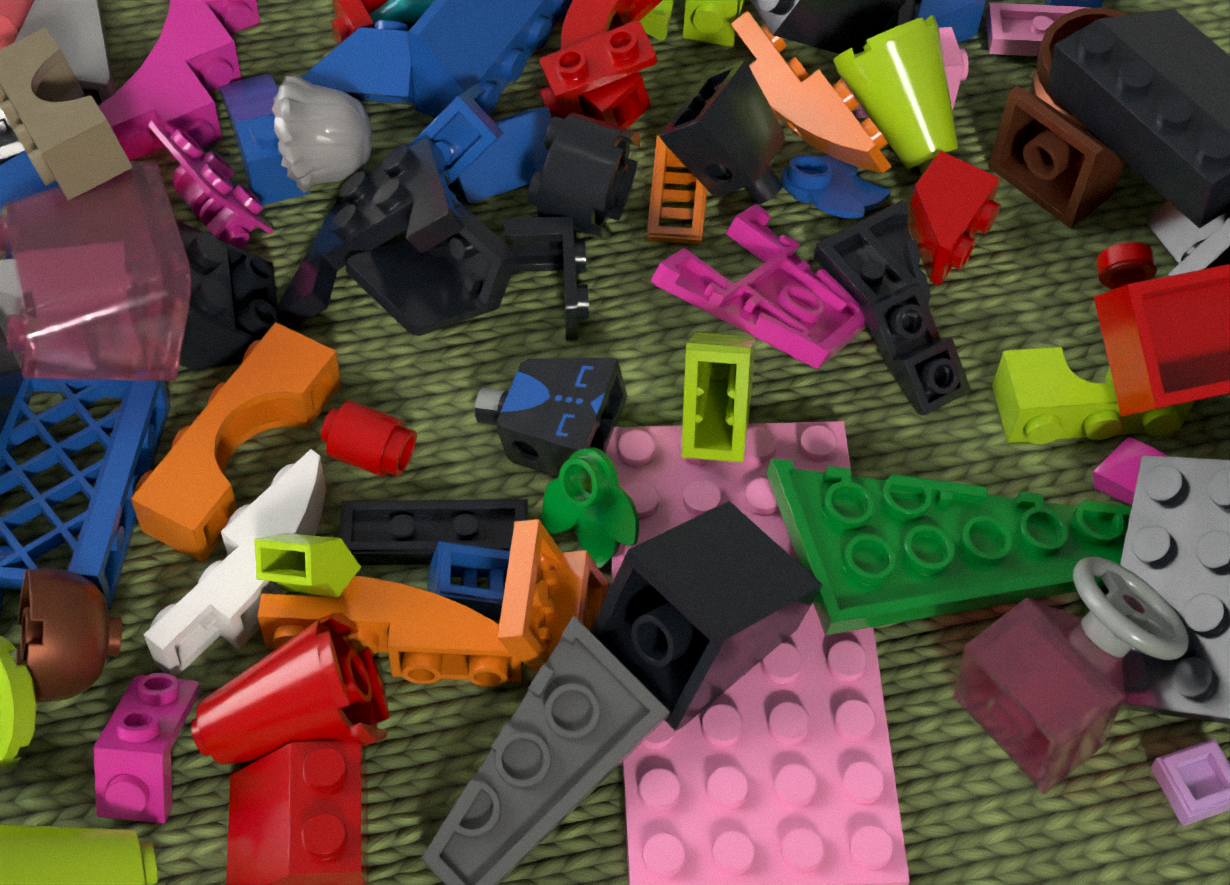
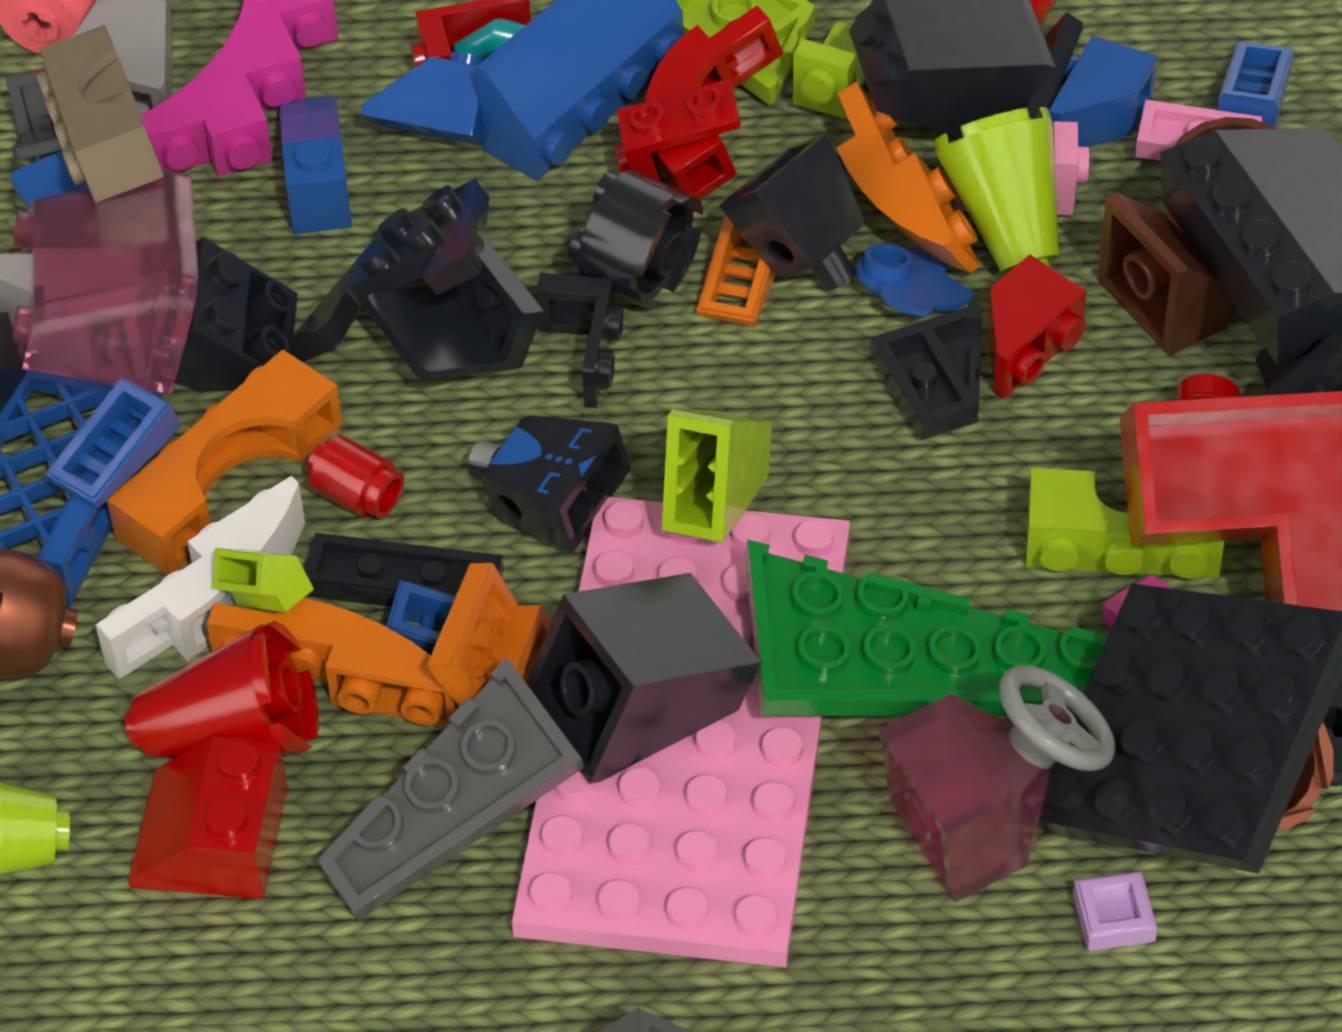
camera: 15 degrees right, 5 degrees down
(129, 399) = (110, 418): none -> blue slope
(136, 748) = (68, 731): dark pink bracket -> none
(207, 188) = (247, 210): dark pink hinge -> none
(320, 133) = (368, 164): light grey hair -> none
(462, 132) = (513, 181): blue panel -> none
(511, 158) = (549, 208): blue panel -> none
(592, 504) = (556, 557): green plate -> none
(776, 302) = (812, 394): dark pink wing -> none
(916, 355) = (946, 458): black slope -> none

